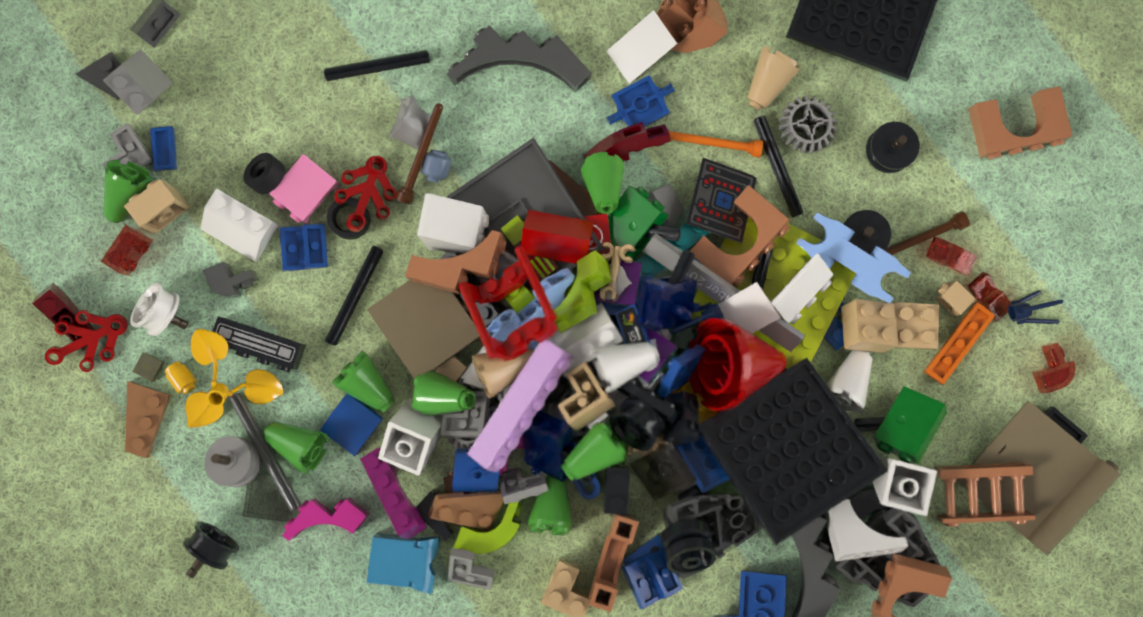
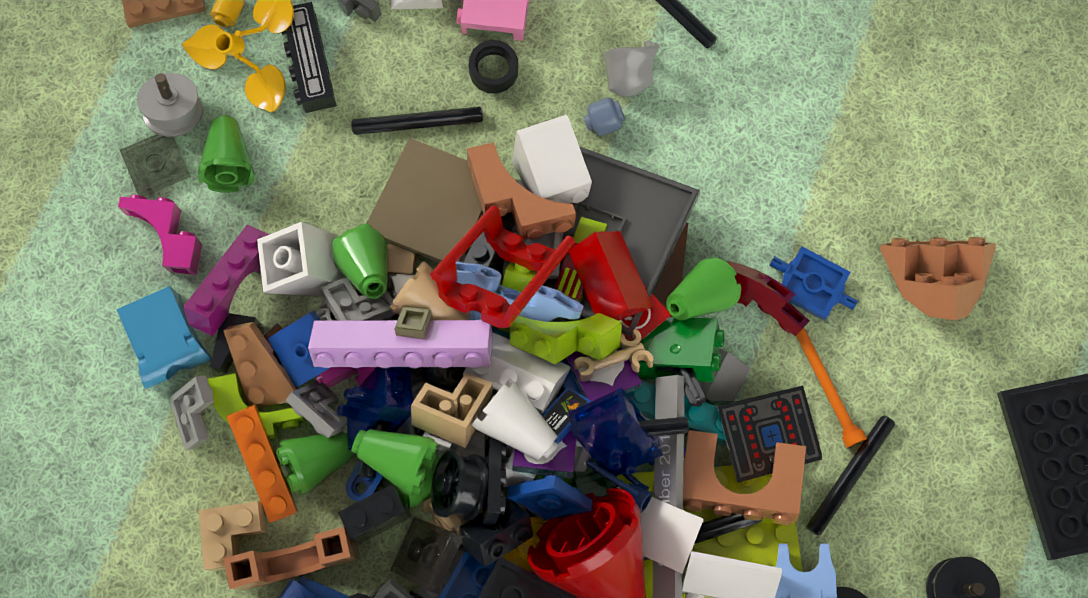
camera: 55 degrees right, 10 degrees down
(209, 547) = (66, 133): black wheel -> none
(265, 452) = (199, 131): dark grey axle -> none
(303, 247) = (435, 43): blue slope -> none
(351, 424) = (280, 197): blue slope -> none
(364, 383) = (331, 183): bright green cone -> none
(368, 190) = (533, 65): red plant -> none
(406, 195) = (555, 106): reddish brown piece -> none
(513, 388) = (413, 322): none -> olive tile
(521, 50) = (782, 126): dark grey arch -> none
(533, 543) = (262, 463): none -> orange plate
(641, 47) = (874, 244): white sticker -> none
(770, 77) = (941, 402): tan cone -> none
(808, 107) = (928, 486): light grey gear -> none

